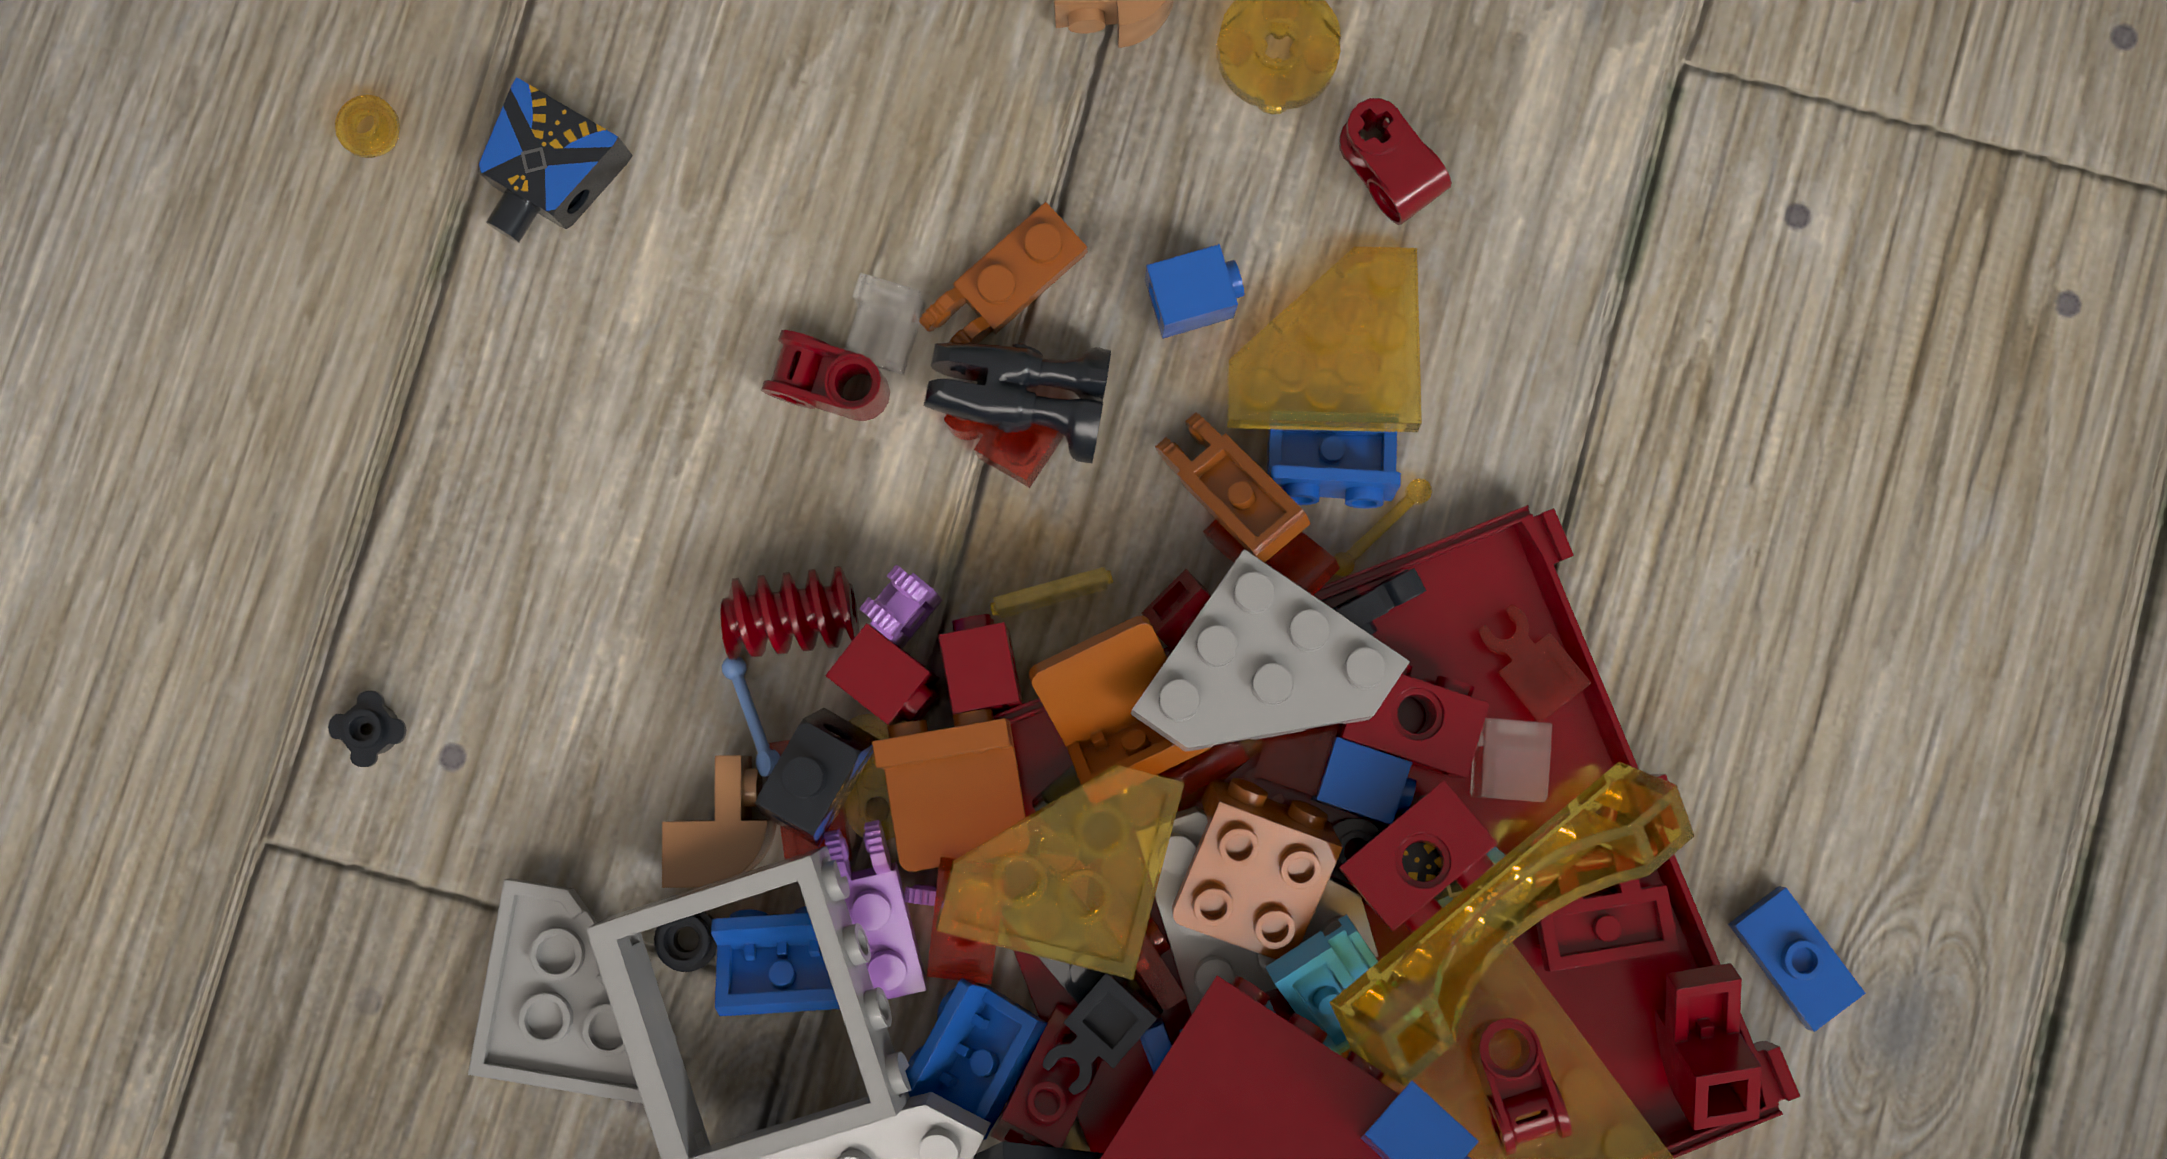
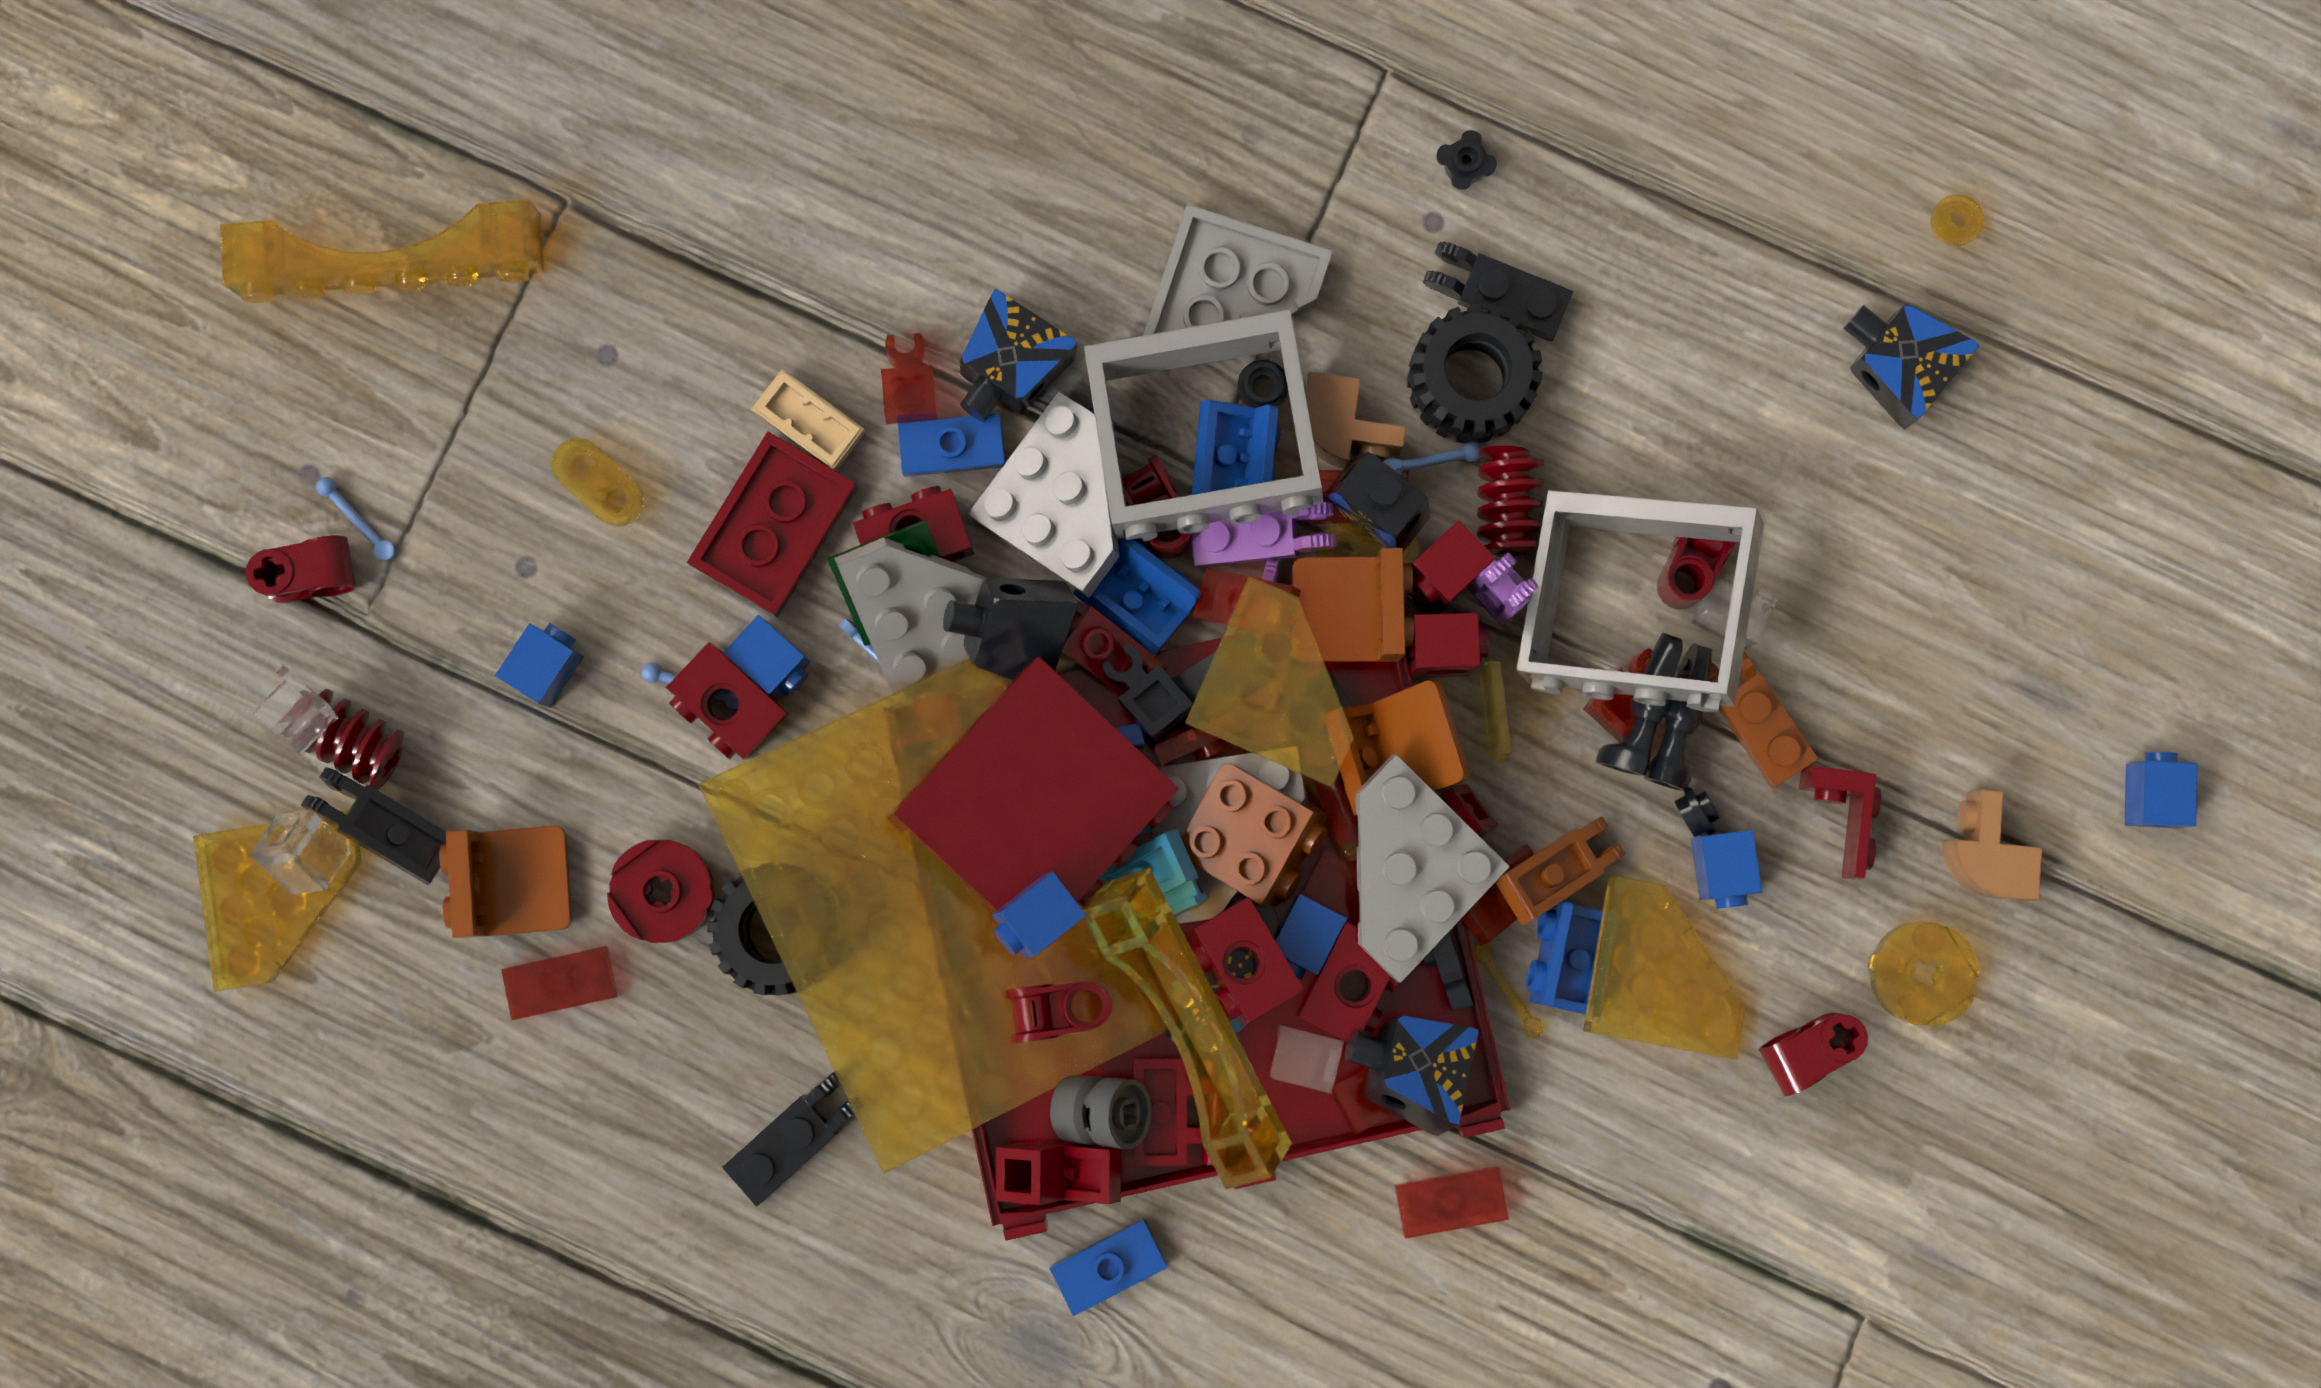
camera: 95 degrees right, 0 degrees up
(528, 660) = (1496, 284): none -> black hinge
(584, 670) = (1492, 336): none -> black tyre
(785, 445) = (1644, 517): none -> light grey window
(835, 1064) = (1151, 485): none -> dark red piece
(1094, 142) = (1865, 802): none -> dark red bracket
(1132, 334) = (1697, 812): none -> black plate
(1505, 624) = (1417, 1069): none -> torso
(1626, 1004) = (1101, 1111): none -> dark grey wheel
(1644, 558) = (1451, 1202): none -> clear red plate

